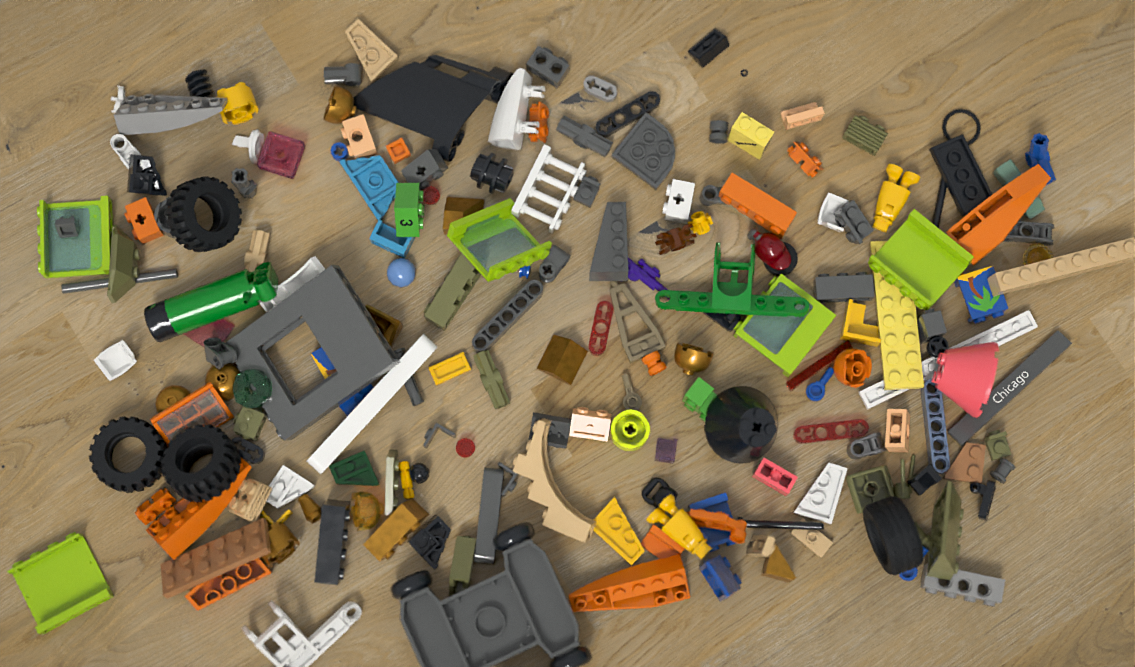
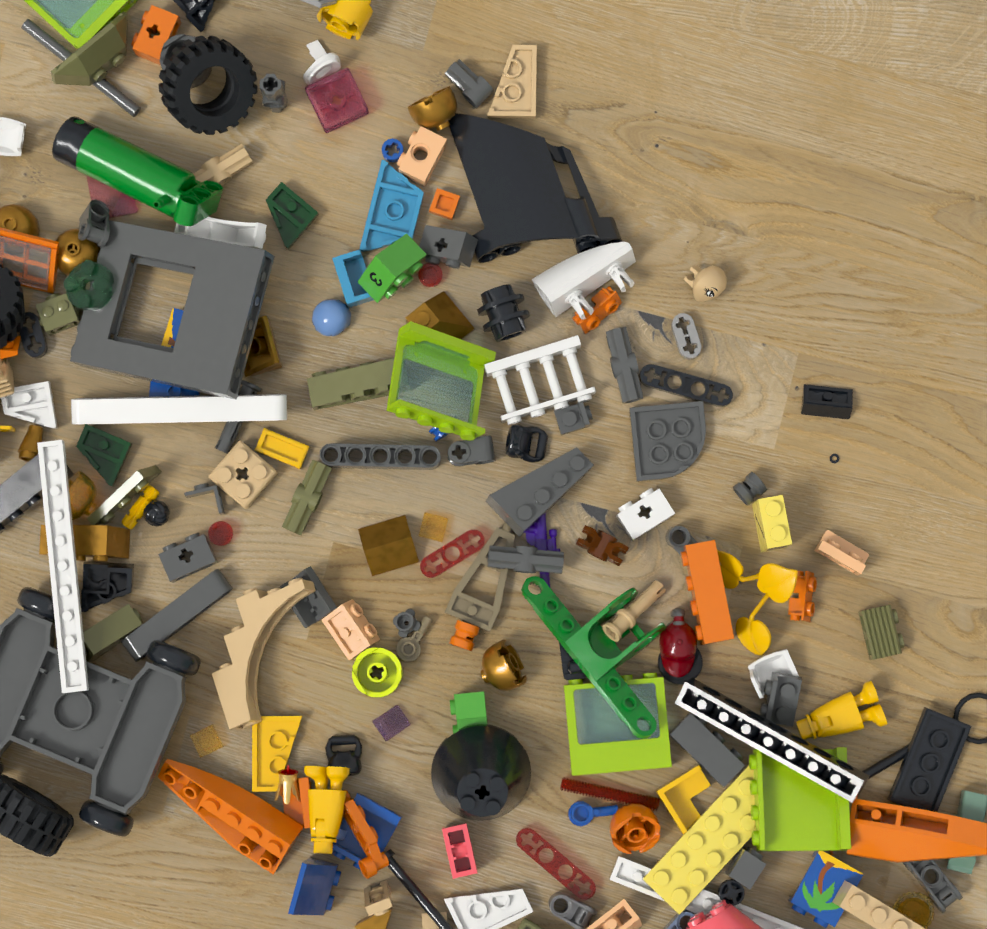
camera: 50 degrees right, 5 degrees up
(319, 240) = (290, 214): none -> dark green wing
(402, 549) = (63, 566): none -> white plate
(435, 394) = (227, 475): none -> tan brick
(461, 490) = (177, 568): none -> dark grey brick
(512, 483) = (227, 608): dark grey bracket -> none
(544, 70) = (654, 267): dark grey brick -> none
(572, 233) = (519, 443): none -> black piece
(575, 325) = (433, 527): none -> clear yellow tile
(577, 565) = (206, 741): none -> clear yellow tile
(583, 49) = (707, 282): none -> tan piece
(611, 389) = (400, 619): none -> dark grey plate
(643, 288) = (525, 559): none -> dark grey piece
(644, 537) = (287, 779): none -> pearl gold piece
(700, 222) = (642, 553): yellow gear -> none
(729, 261) = (627, 617): none -> tan pin
(787, 159) = (774, 581): none -> yellow plant
(873, 243) = (772, 739): none -> black brick

